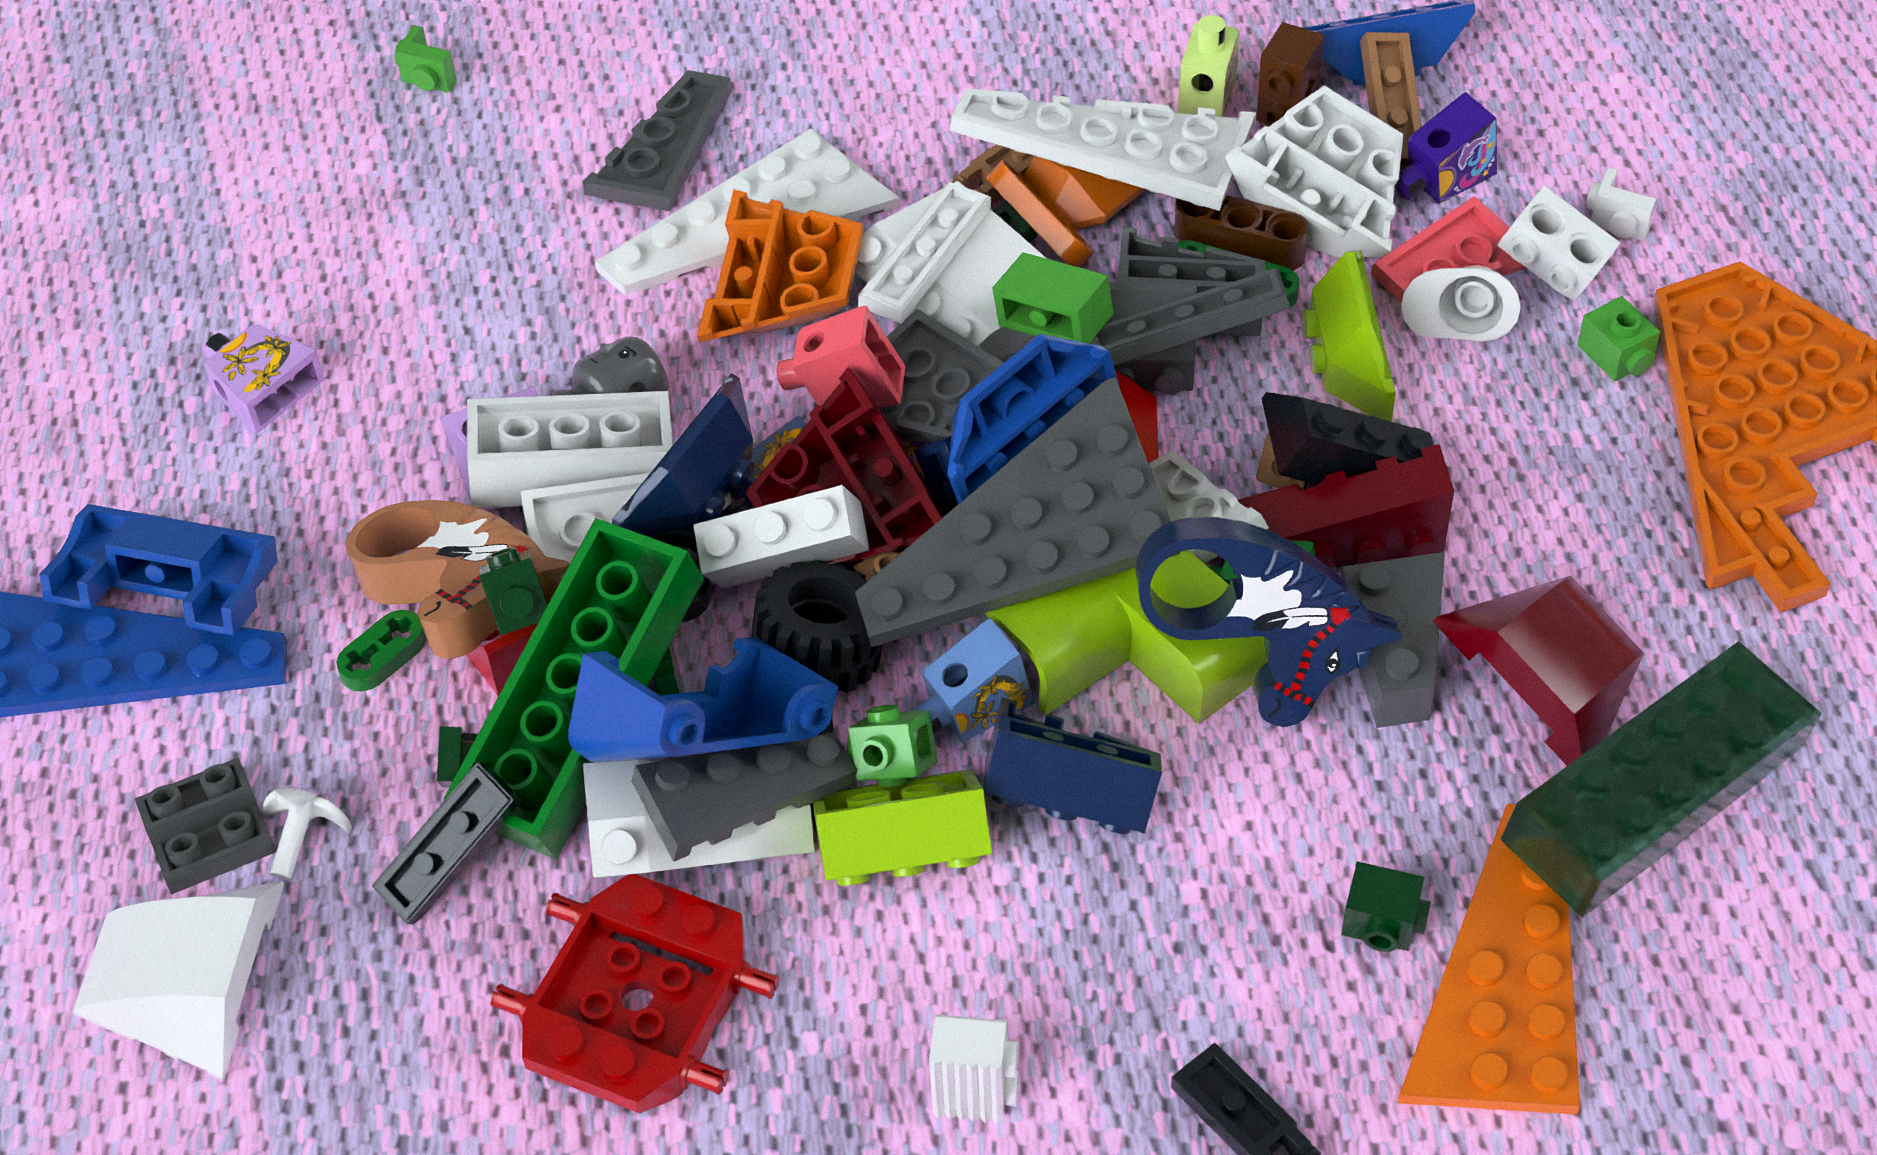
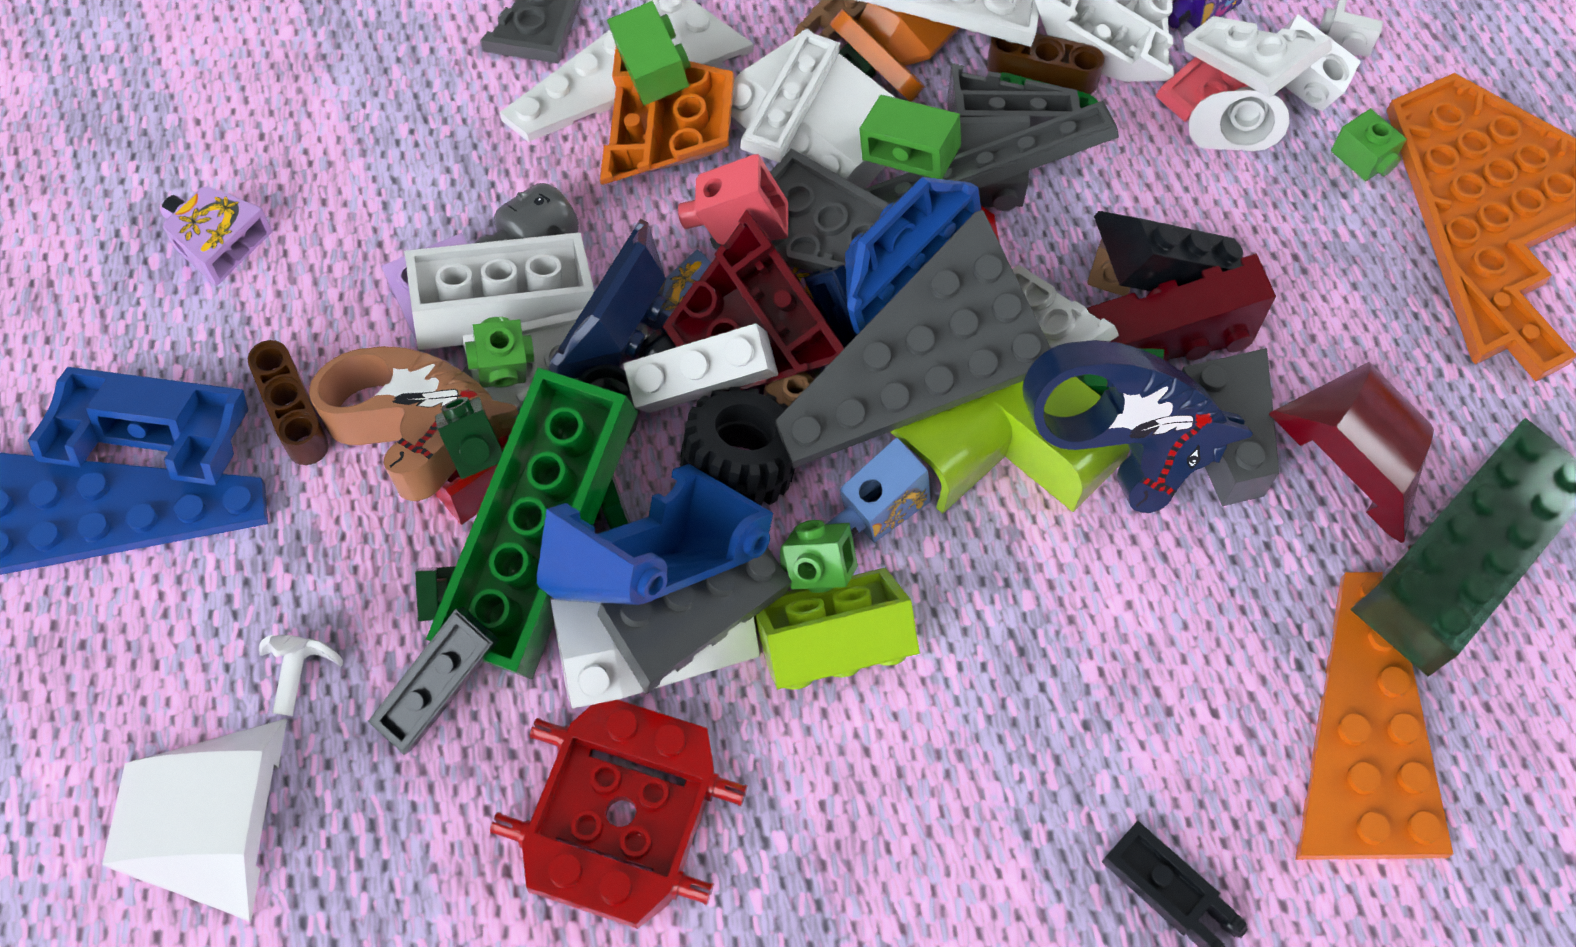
camera: 10 degrees left, 10 degrees up
(204, 825) = (207, 670): dark grey slope -> none
(321, 556) = (281, 387): none -> reddish brown beam
(381, 650) = (351, 488): green beam -> none
(558, 507) = (499, 352): none -> bright green brick
(767, 199) = (649, 53): none -> bright green brick
(972, 1068) = (936, 868): white brick -> none
(1070, 772) = (975, 572): dark blue wedge -> none
(1349, 339) = (1152, 156): lime wedge -> none
(1385, 907) = (1261, 679): dark green brick -> none
(1483, 230) = (1255, 56): none -> white wing

